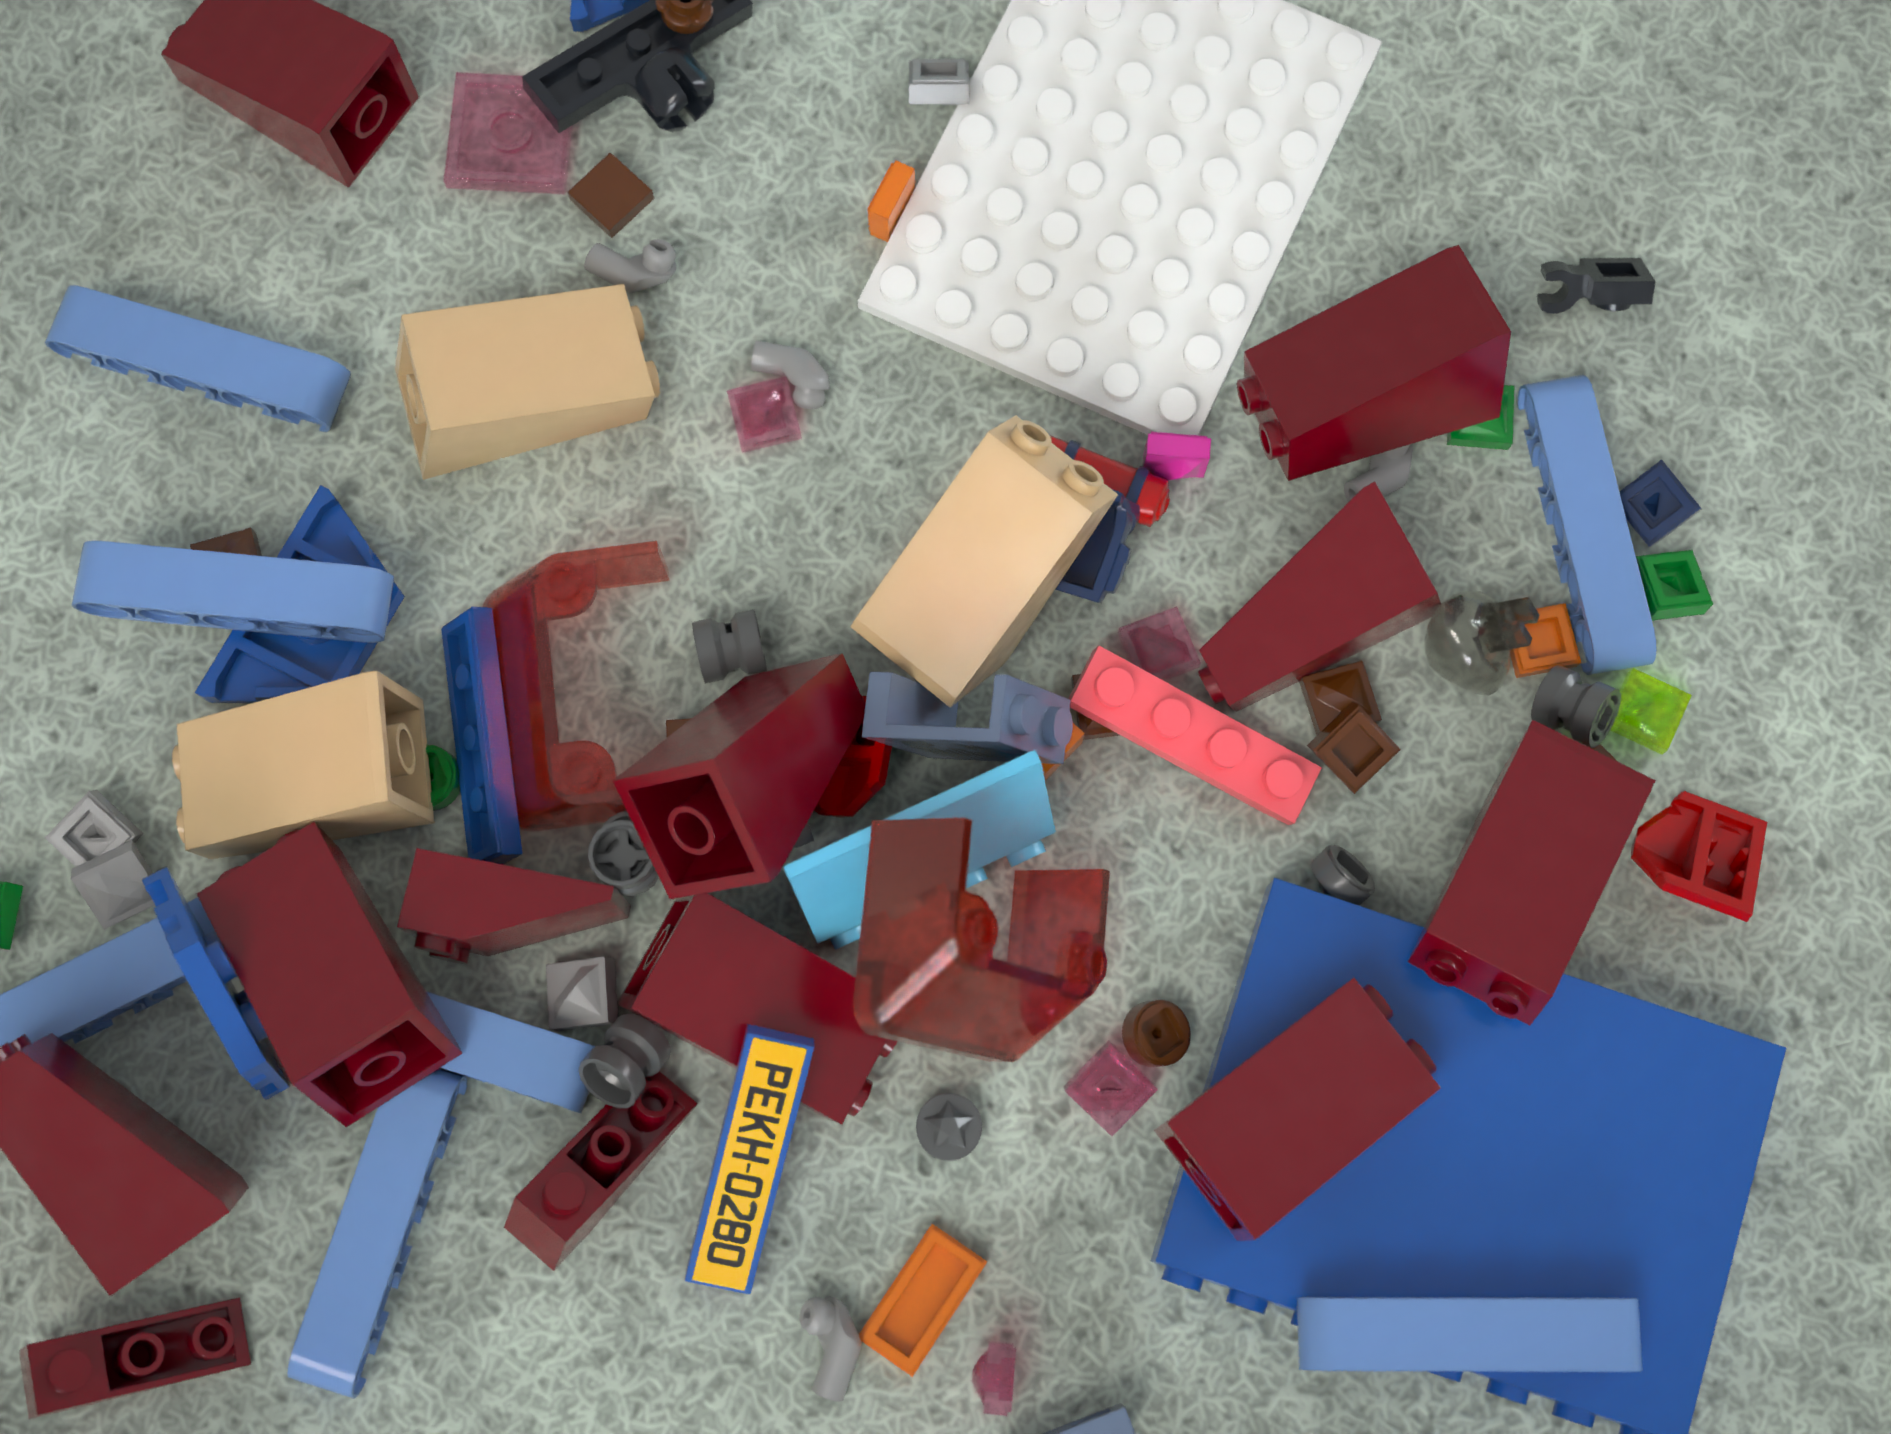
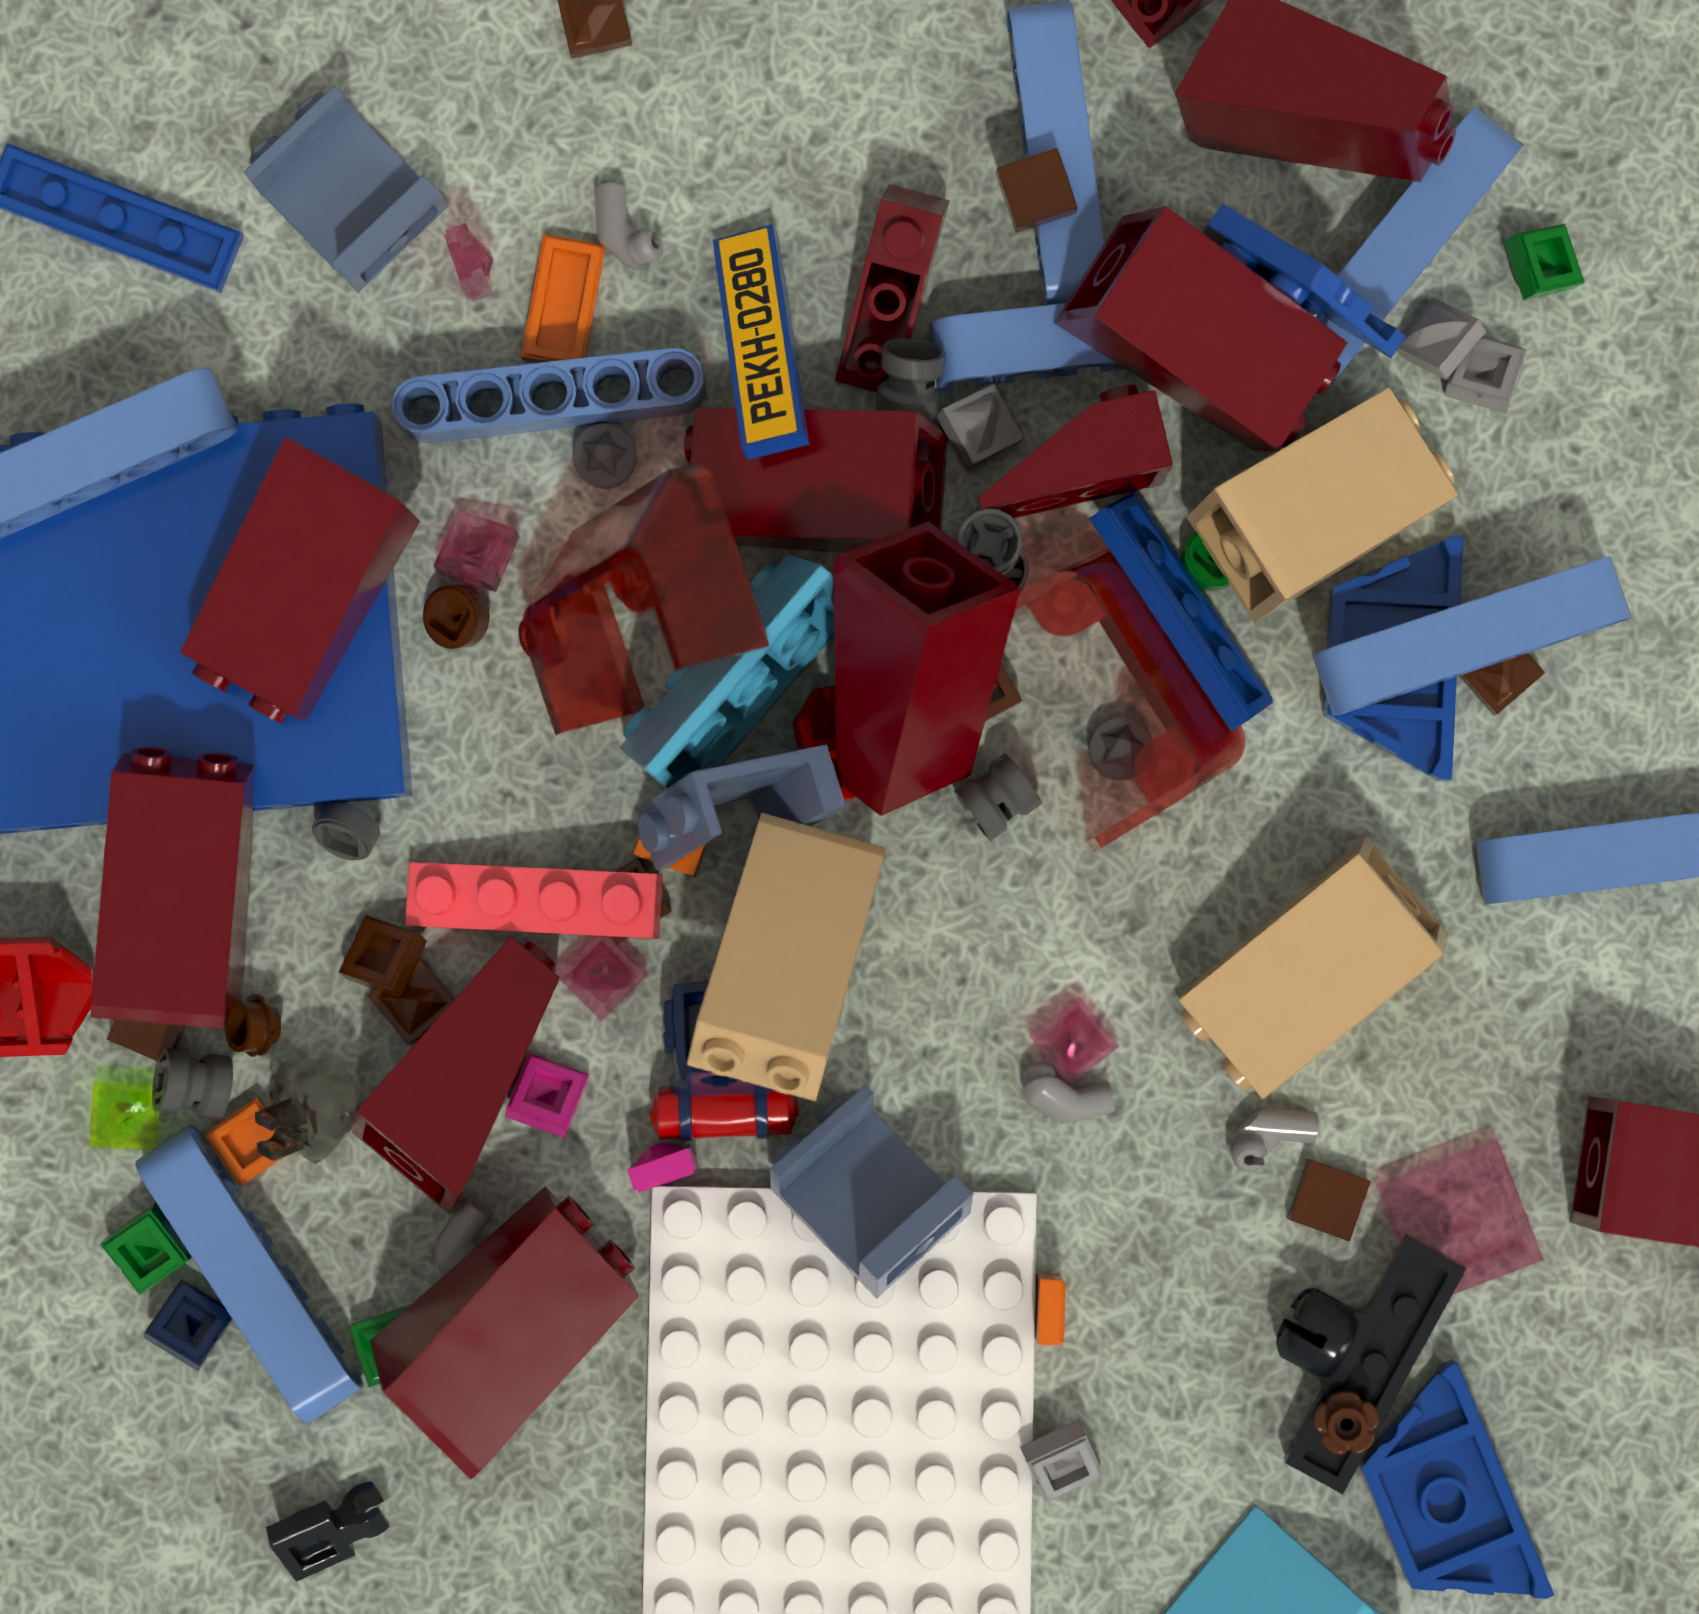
camera: 155 degrees right, 10 degrees up
(414, 1187) = (1036, 190): none -> reddish brown tile
(598, 645) = (1116, 746): none -> dark grey tile
(1003, 348) = (866, 1192): none -> sand blue panel
(1010, 1201) = (521, 382): none -> medium blue beam
(1250, 560) = (547, 1095): none -> dark pink tile
(1497, 735) = (253, 1026): none -> reddish brown plate

